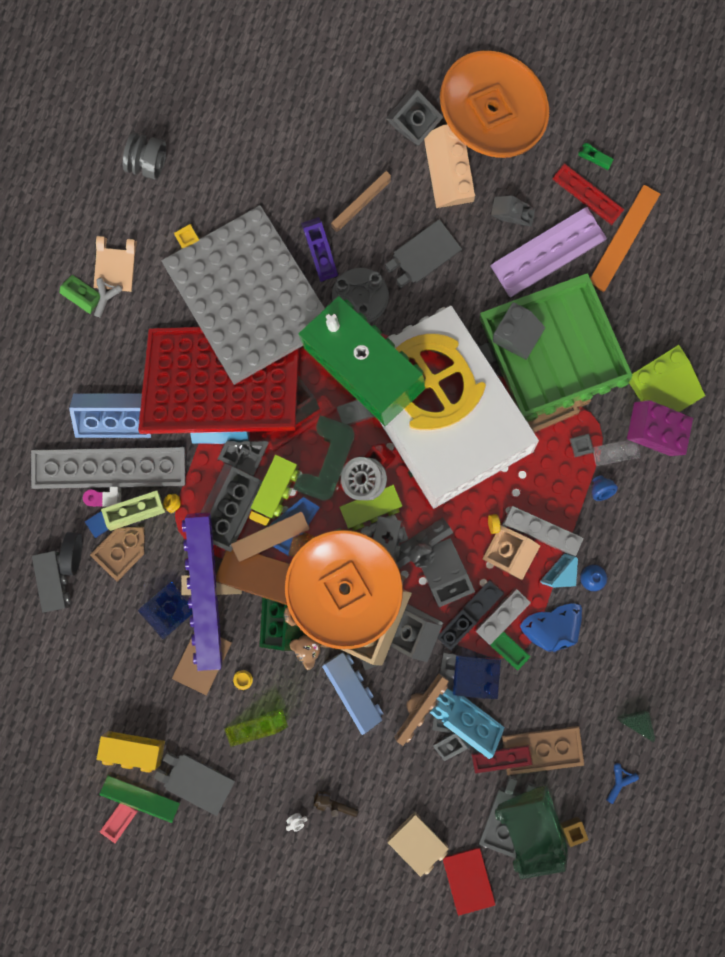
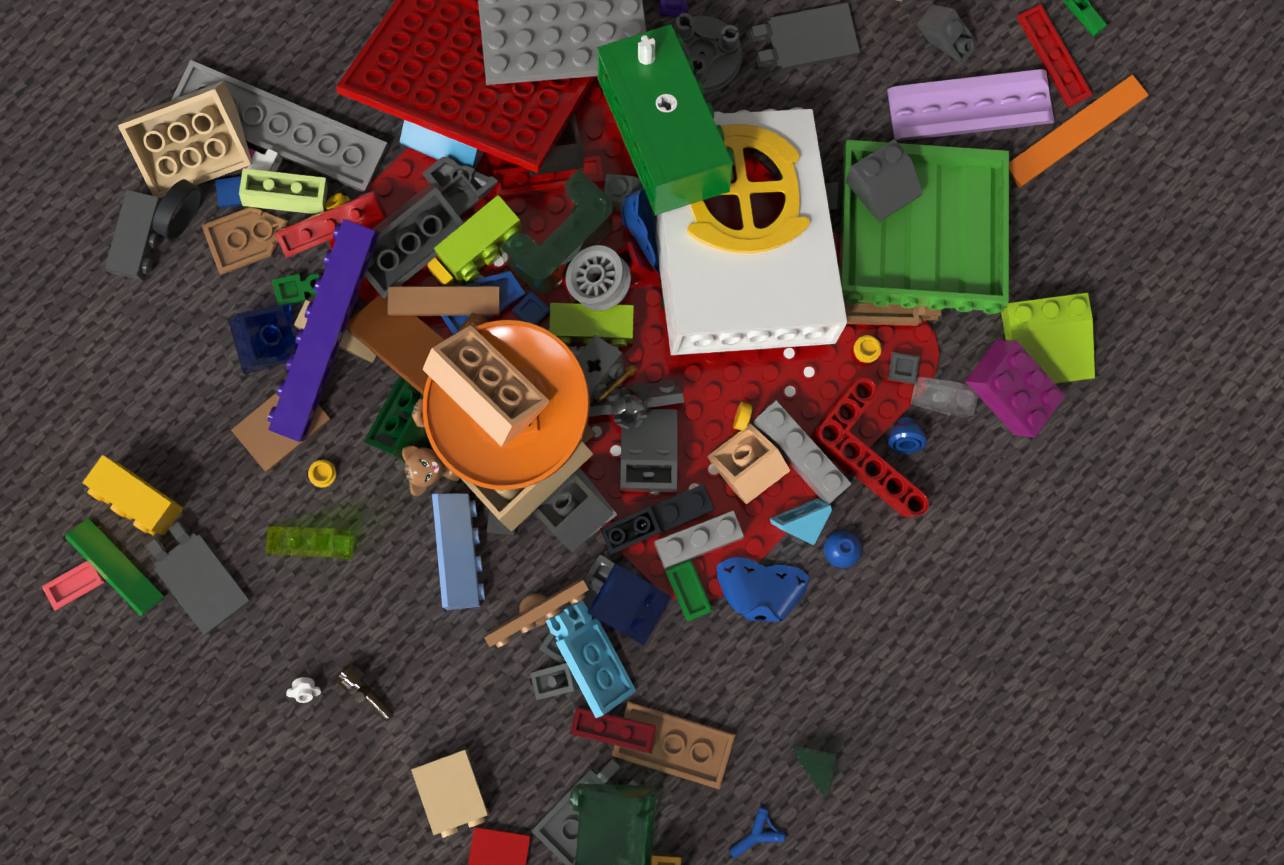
camera: 15 degrees right, 5 degrees down
(55, 504) = (187, 139): none -> tan slope
(106, 415) = (305, 59): light blue slope -> none
(168, 571) = (292, 290): none -> green plate
(173, 517) = (321, 226): none -> red tile
(325, 584) = (485, 384): none -> light nougat slope
(327, 515) = (531, 309): none -> blue tile
(371, 426) = (639, 220): none -> blue piece
(409, 525) = (630, 370): none -> pearl gold piece
(553, 443) = (867, 349): none -> yellow plate
(581, 515) = (863, 454): none -> red beam

